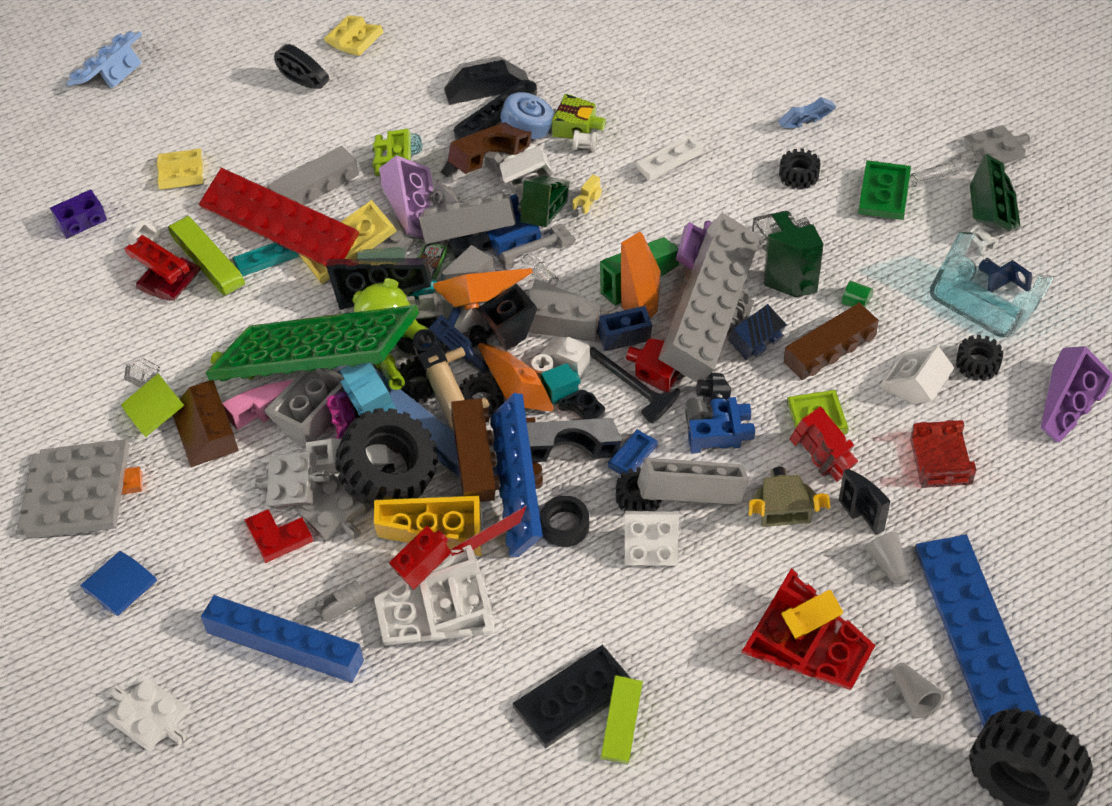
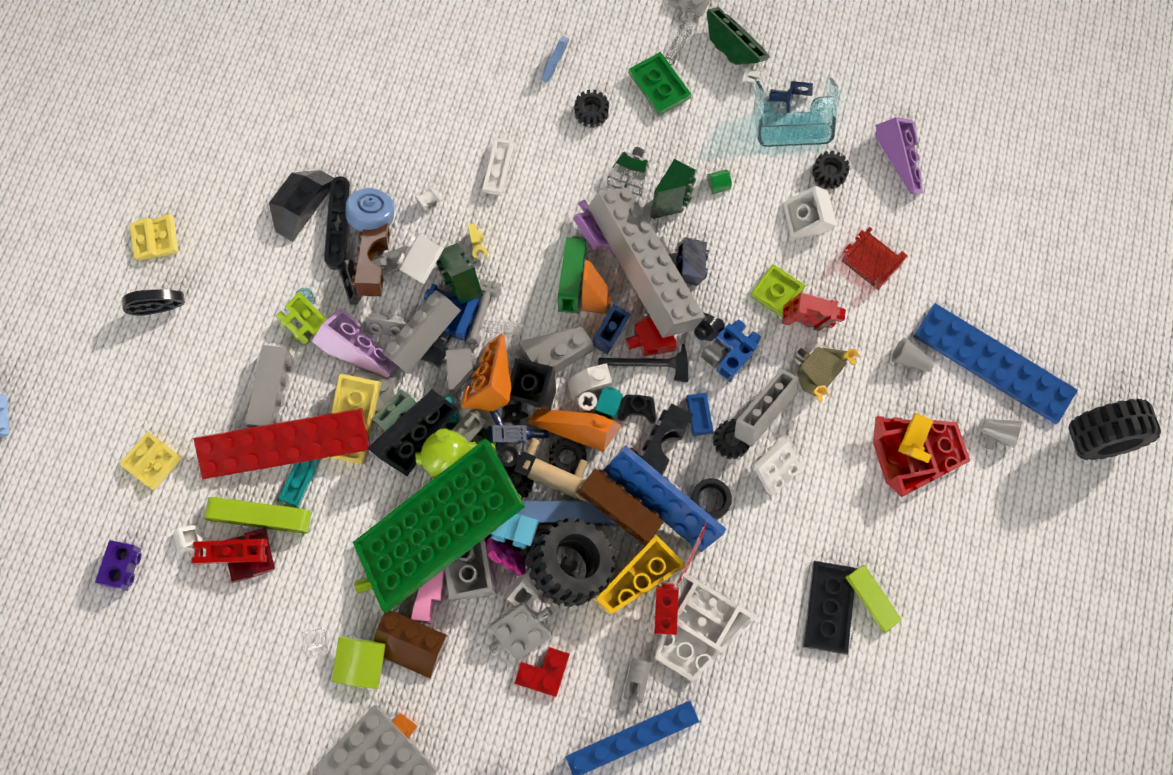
camera: 50 degrees left, 20 degrees up
(332, 510) = (563, 624): light grey plate -> none
(435, 257) = (421, 381): tile -> none
(575, 115) = (403, 183): lime torso -> none
(831, 341) = (738, 230): reddish brown brick -> none
(864, 499) = (869, 330): black slope -> none

